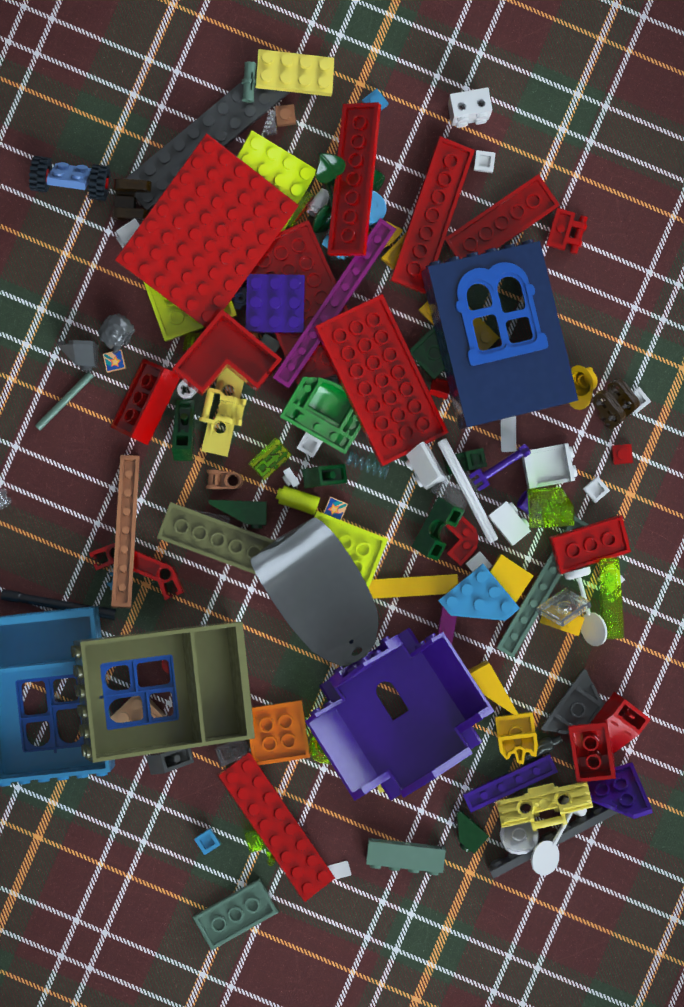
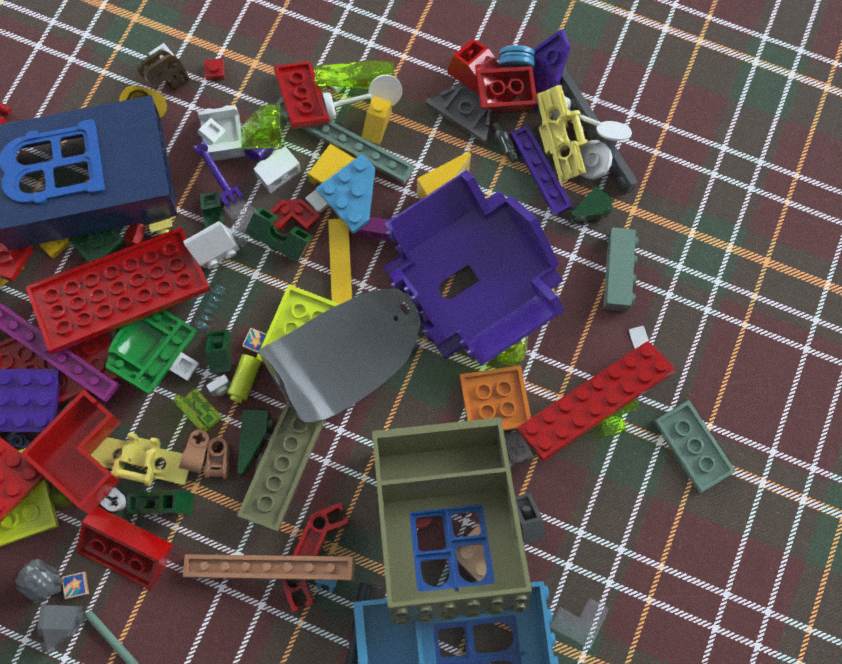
camera: 95 degrees left, 15 degrees down
(76, 804) = (581, 628): none -> clear tile
(207, 841) = (616, 476): dark azure plate -> none
(225, 460) = (194, 453): none -> nougat piece
(447, 413) = (161, 227): none -> light yellow plate
(467, 490) = (242, 207): white axle -> none
(508, 434) = (188, 172): white sticker -> none
(516, 735) = (493, 161): yellow plate -> none
(548, 456) = (211, 131): none -> white plate
(563, 607) = (362, 114): clear tile -> none
(596, 489) = (248, 92): white tile -> none
(626, 763) = (516, 56): none -> dark azure head

